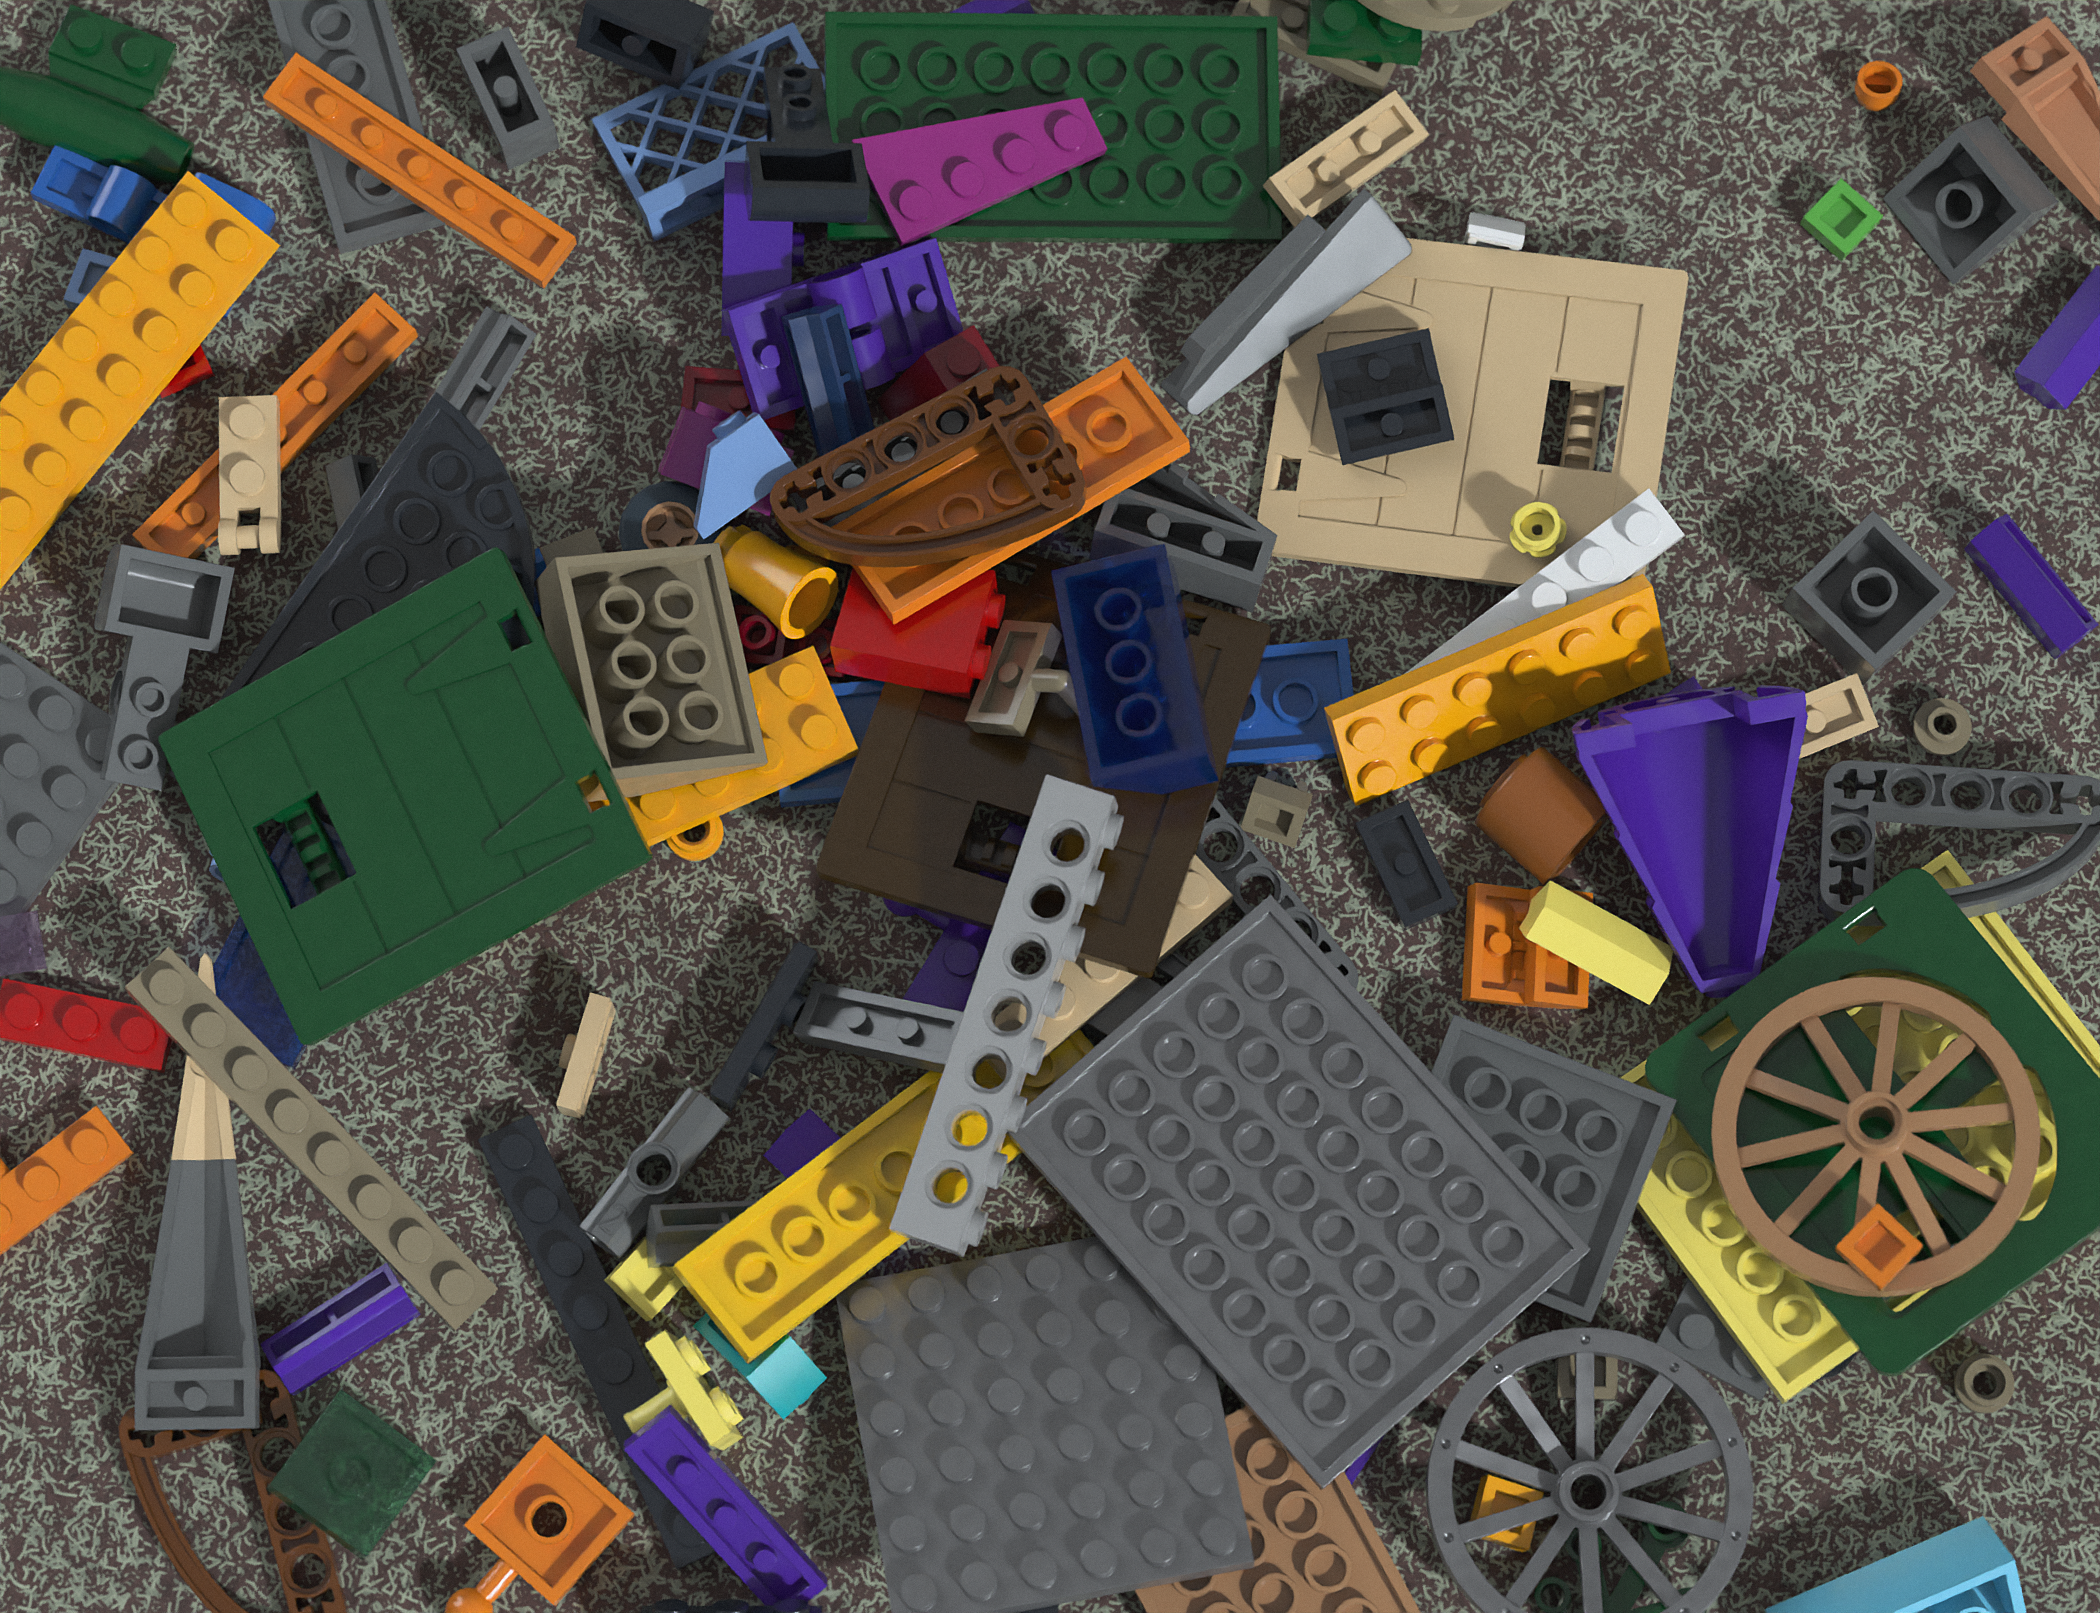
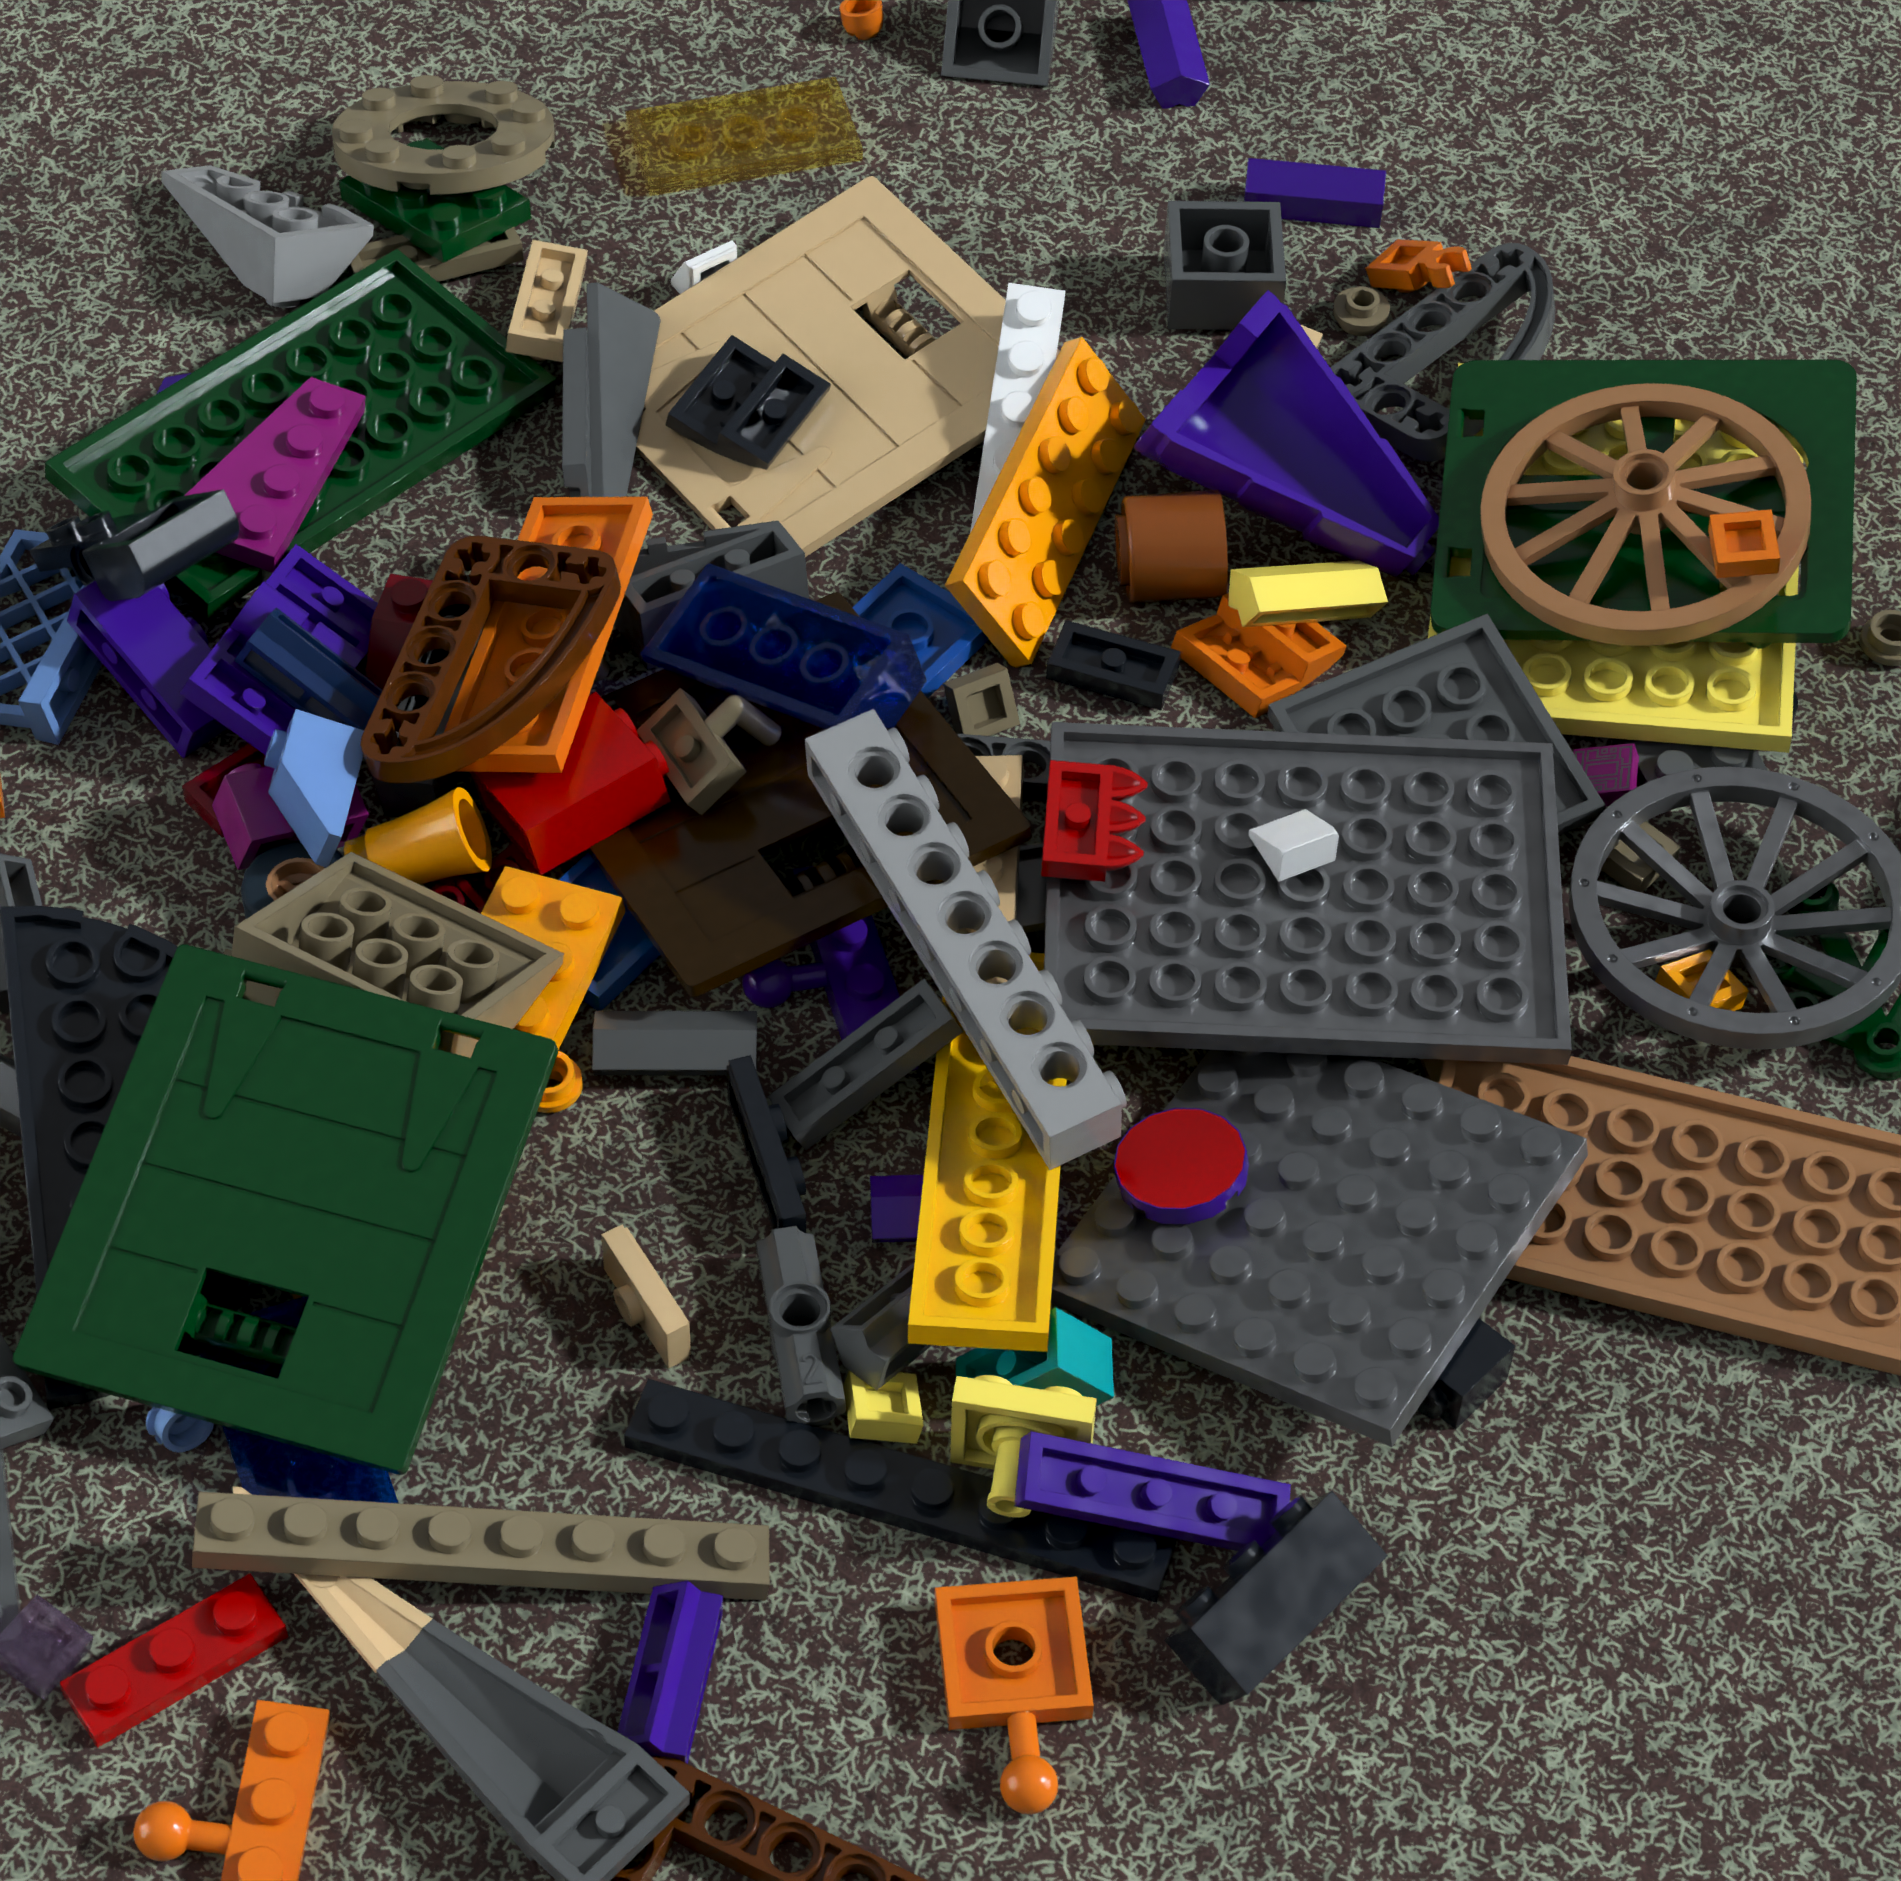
camera: 45 degrees left, 25 degrees down
(351, 1474) = (810, 1765): clear green plate -> none
(788, 881) = (671, 1042): none -> dark grey piece
(995, 1306) = (1181, 1165): none -> red tile
(1192, 1002) = (1087, 818): none -> red plate
(1315, 1154) = (1295, 843): none -> white slope
(1537, 515) = (956, 382): light yellow plate -> none
(1641, 1289) = (1610, 769): none -> magenta tile
(1667, 121) = (743, 136): none -> clear yellow tile
(1841, 219) = (931, 98): bright green plate -> none
(2023, 727) = (1413, 263): none -> orange plate

